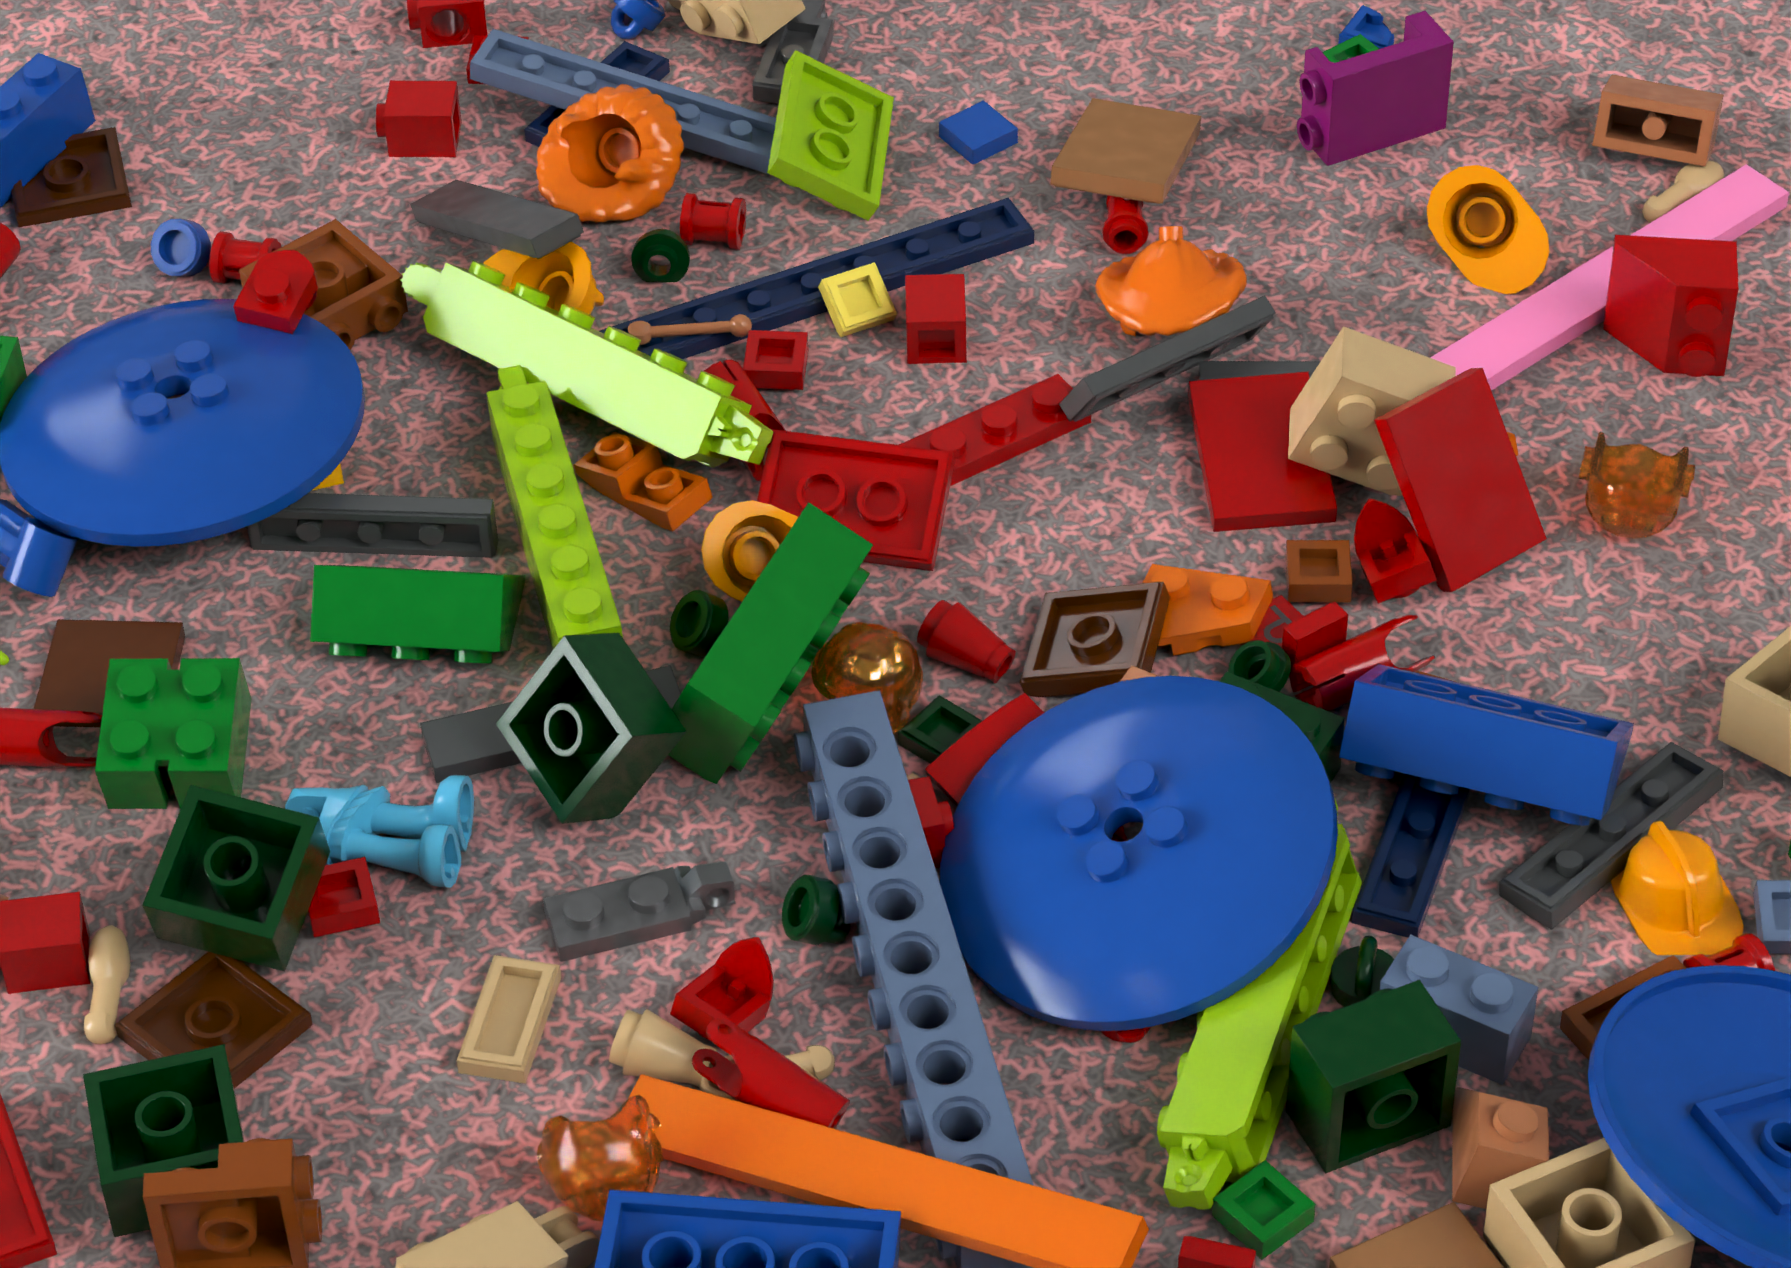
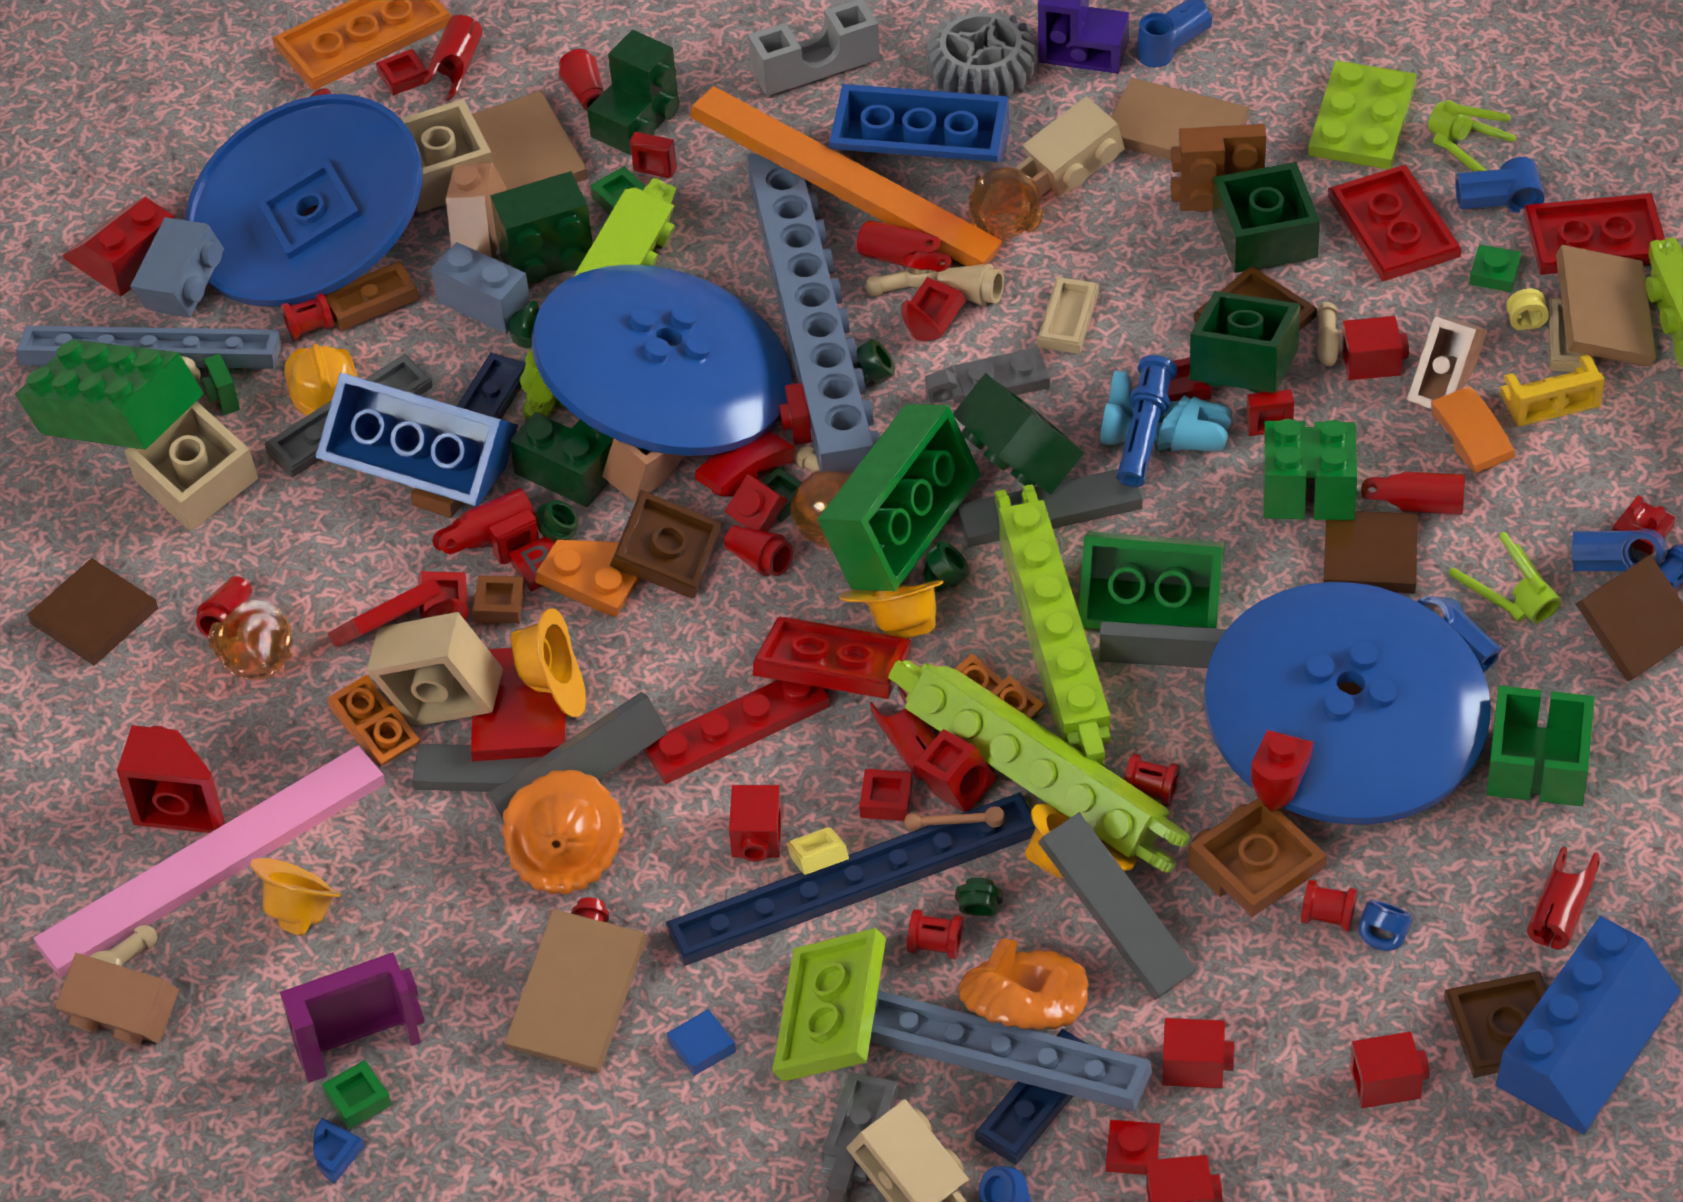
camera: 175 degrees left, 5 degrees up
(209, 111) = (1388, 1069): none -> red brick
(426, 740) = (1148, 404): none -> blue pin
(442, 381) = (1153, 778): none -> red bush
(694, 337) = (955, 771): none -> red brick
(971, 692) = (755, 504): none -> red plate
(1223, 444) = (548, 662): none -> light orange piece
(1697, 548) = (222, 603): none -> red cone

